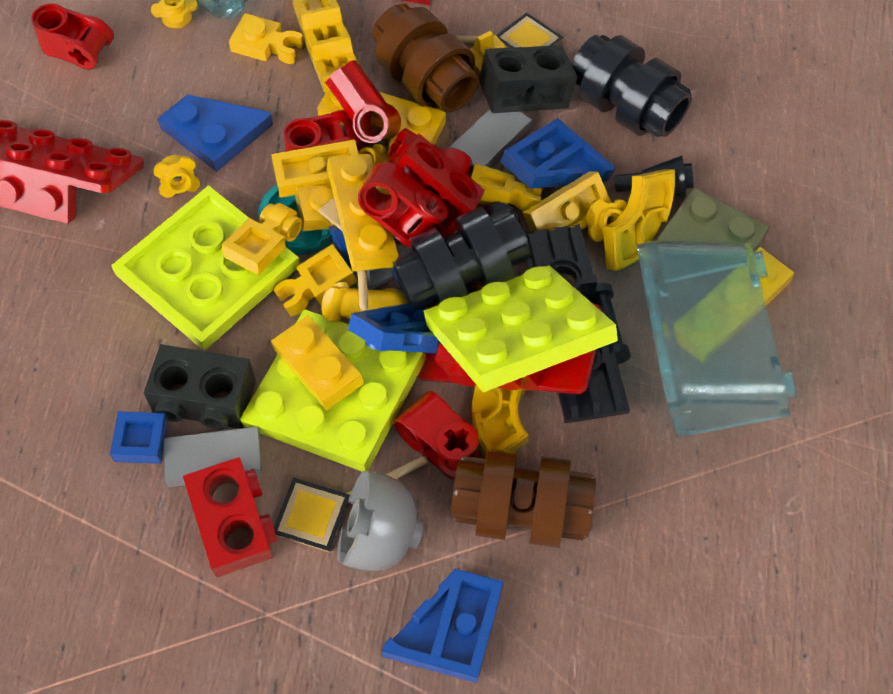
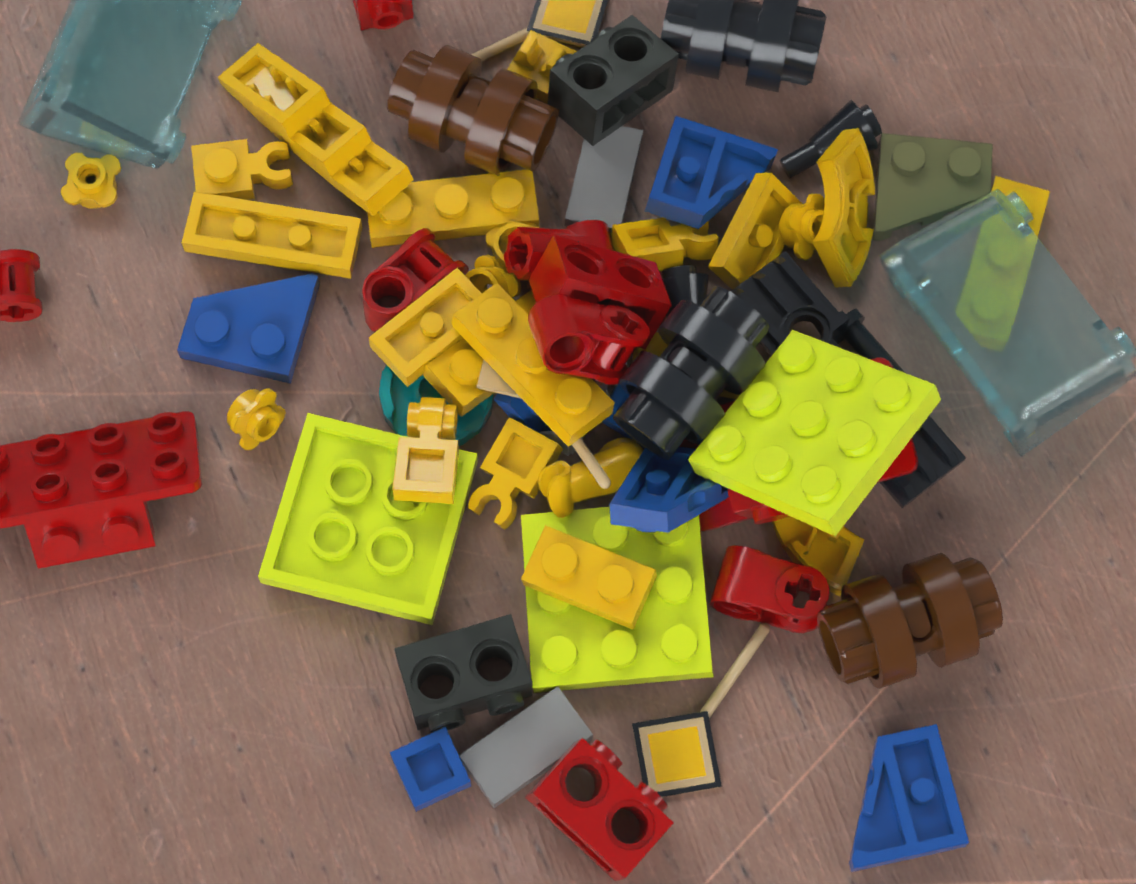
camera: 30 degrees left, 10 degrees up
(259, 80) = (272, 234): none -> yellow plate
(361, 100) = (437, 212): red piece -> none
(379, 524) = (768, 732): light grey cylinder -> none

